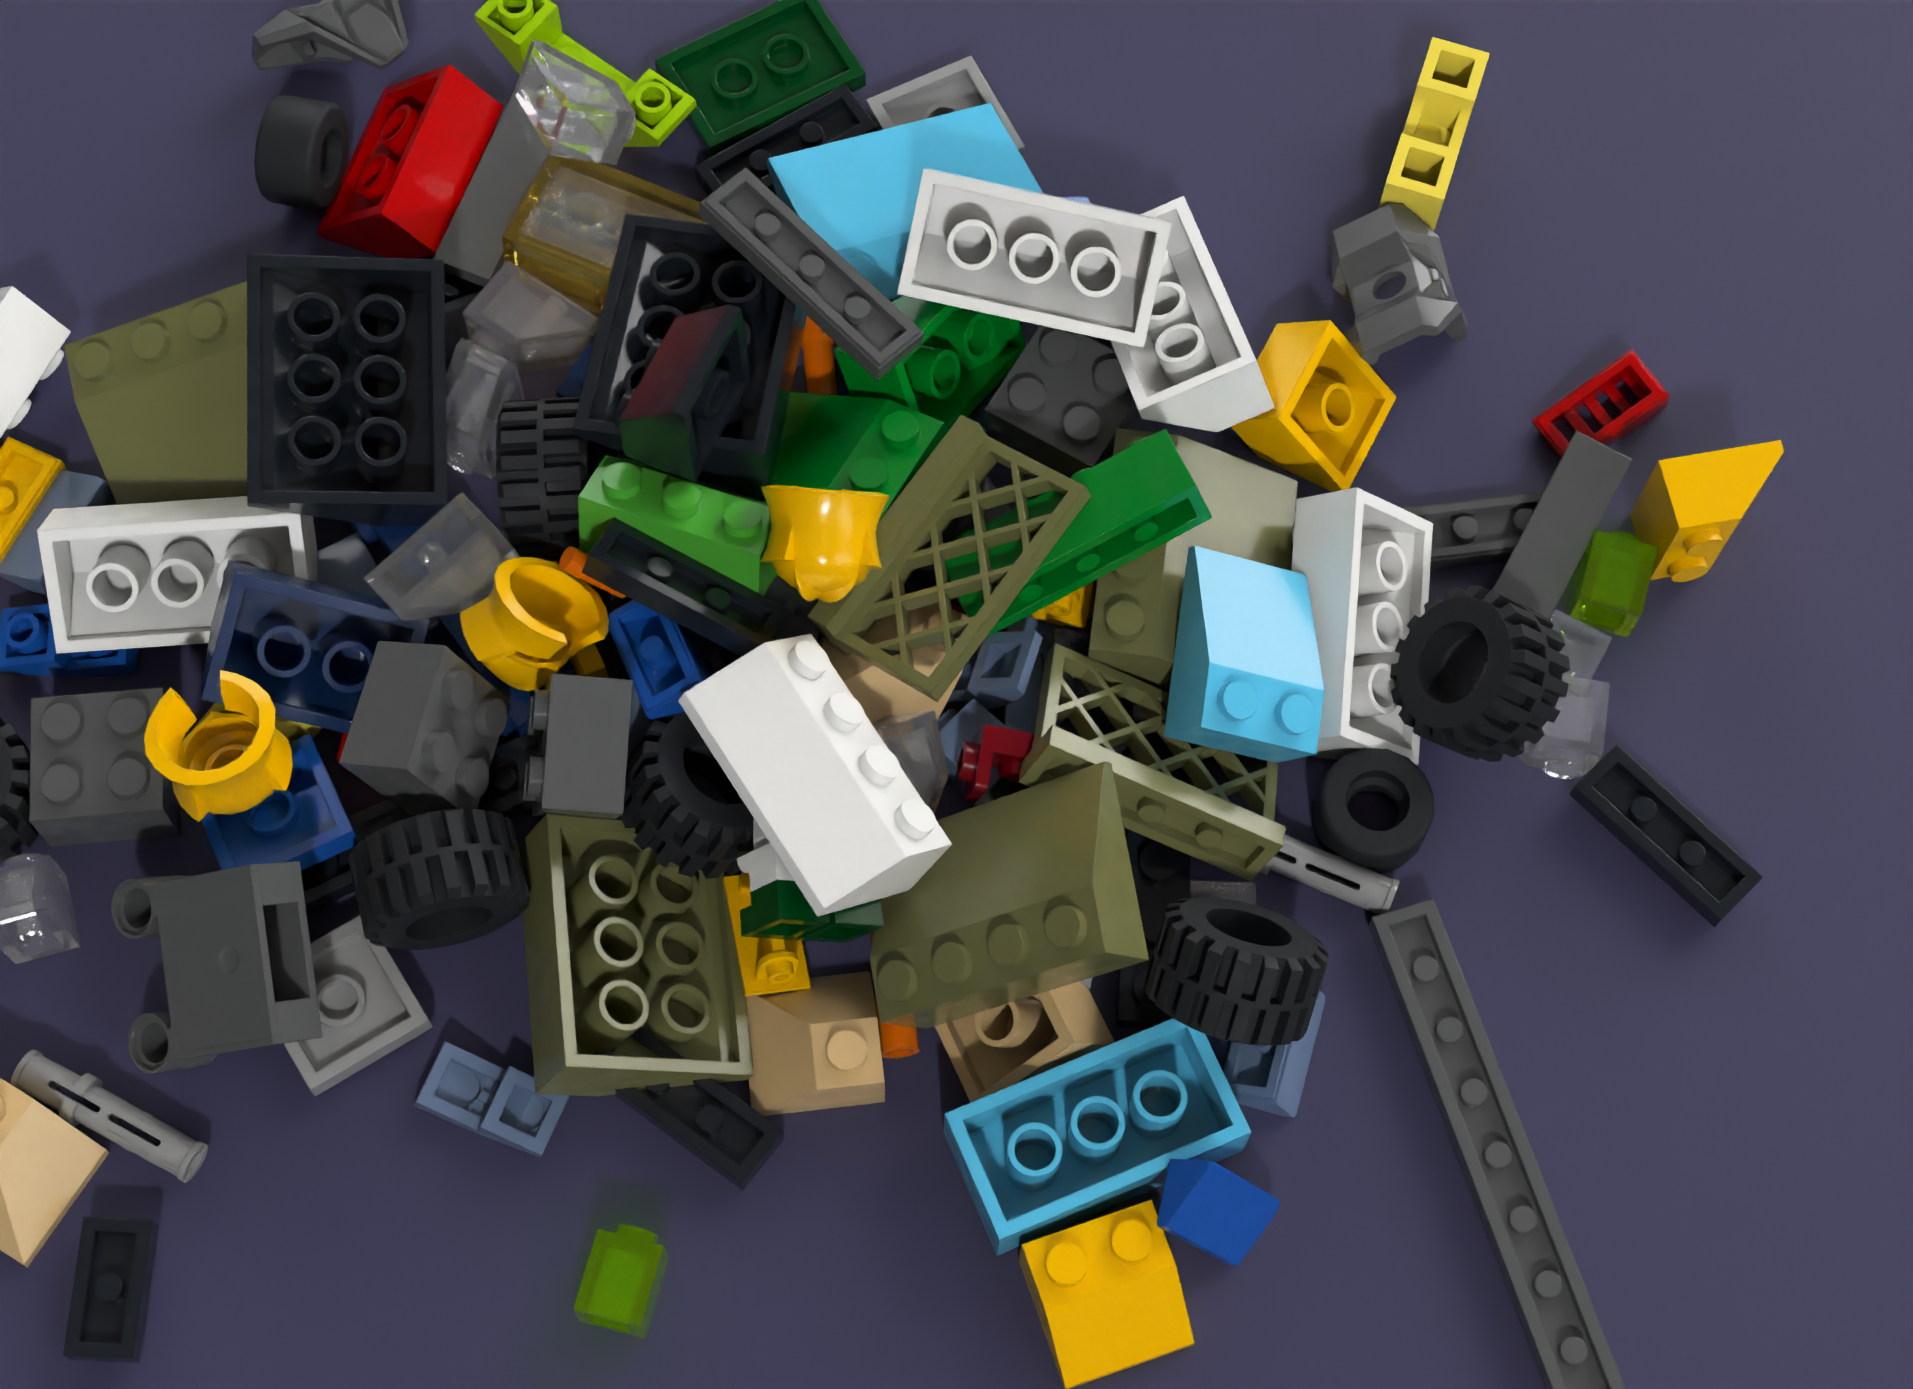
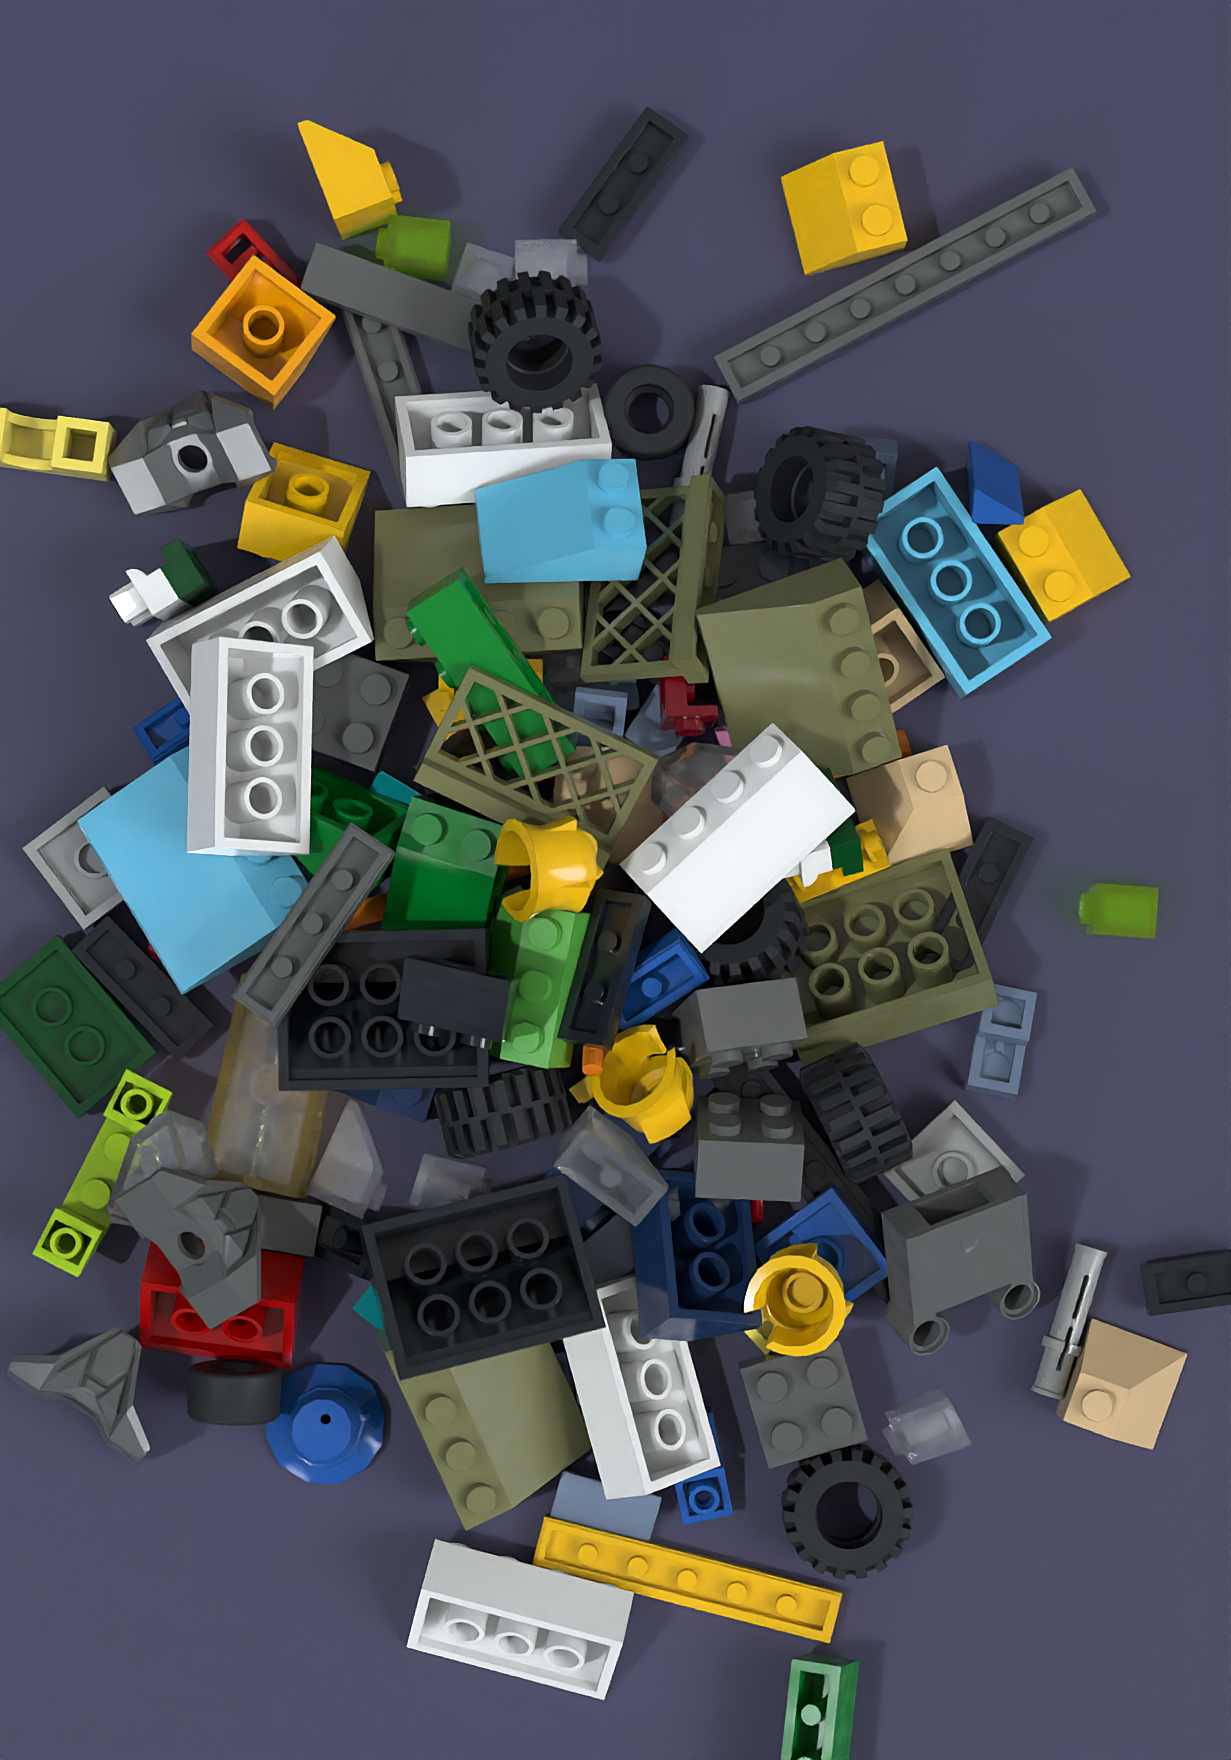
camera: 100 degrees left, 20 degrees up
(215, 258) = (330, 1450): none -> blue hat
(485, 127) = (227, 1218): none -> dark grey piece
(1243, 242) = (167, 590): none -> hips
(1528, 387) = (262, 332): none -> light orange slope
(1605, 1103) = (844, 209): none -> yellow slope

